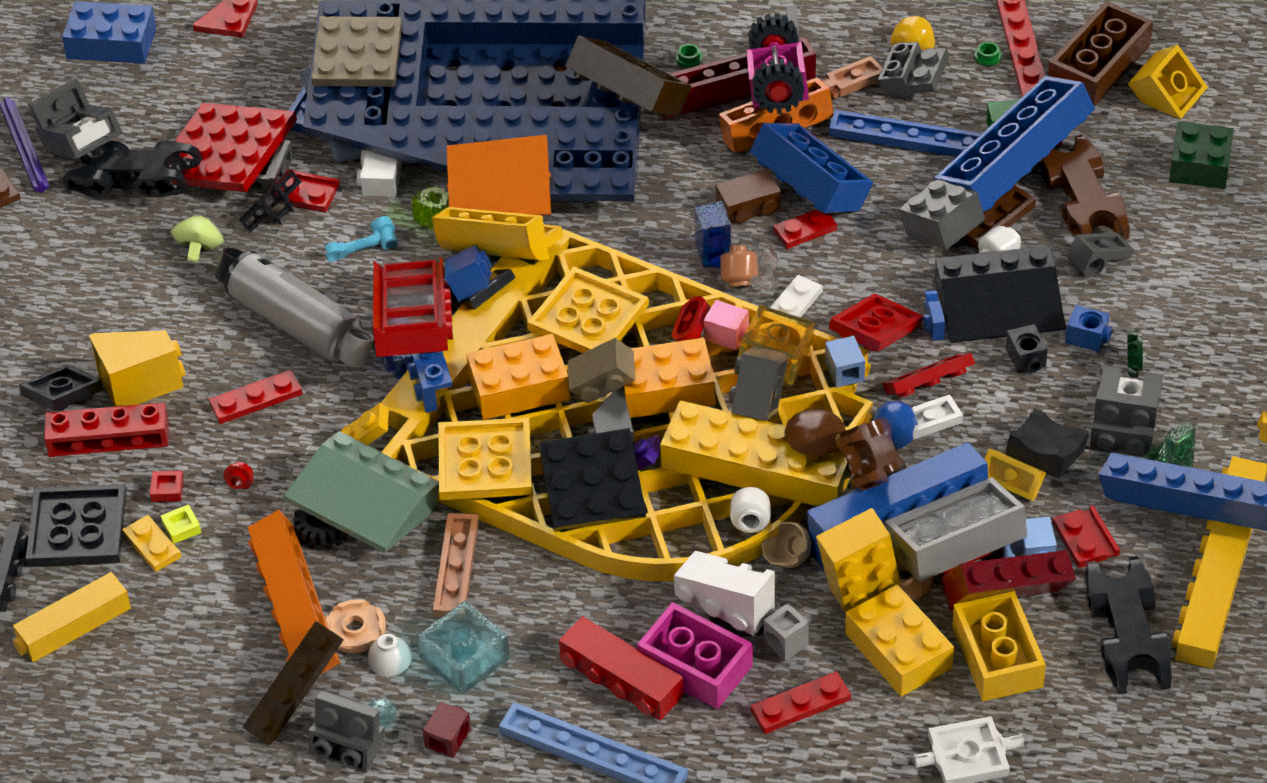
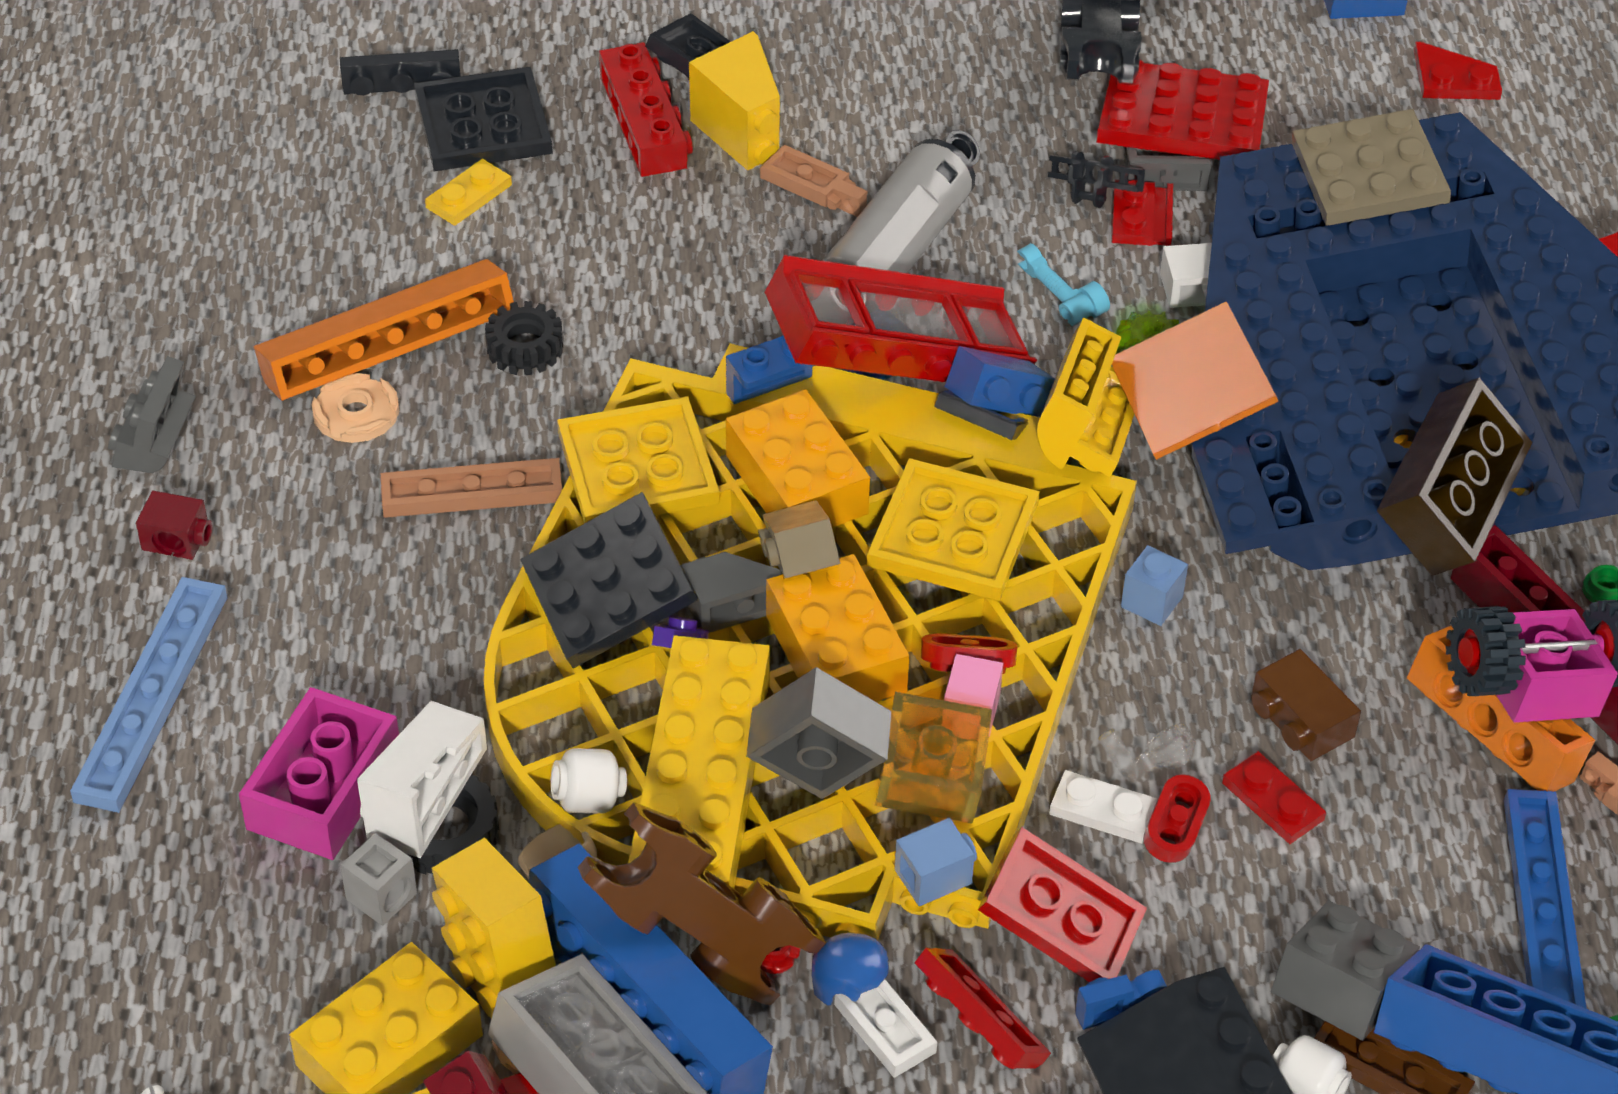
camera: 75 degrees right, 0 degrees up
(71, 617) = (328, 142): yellow brick -> none
(166, 486) = (562, 183): plate -> none
(180, 524) = (499, 208): neon yellow plate -> none
(197, 233) = (1006, 117): yellowish green piece -> none
(216, 348) = (814, 180): none -> nougat hinge
(238, 475) = (590, 243): red plate -> none
(255, 396) = (740, 235): plate -> none
(293, 683) = (227, 349): dark brown plate -> none
(363, 492) = (560, 352): sand green slope -> none
(369, 426) = (683, 337): yellow plate -> none
(387, 711) = (206, 459): clear light blue tile -> none
(389, 655) = (307, 449): white brick -> none
(463, 647) = (309, 512): clear light blue brick -> none
(621, 668) = (319, 655): brick -> none
(642, 240) = (1154, 585): none -> medium blue brick
(712, 232) = (1184, 660): clear blue brick -> none
(738, 266) = (1138, 711): nougat head -> none
(800, 702) = (267, 931): red plate -> none
(811, 167) = (1383, 767): blue brick -> none
(813, 433) = (722, 810): reddish brown dish -> none
(814, 268) = (1175, 820): none -> red plate

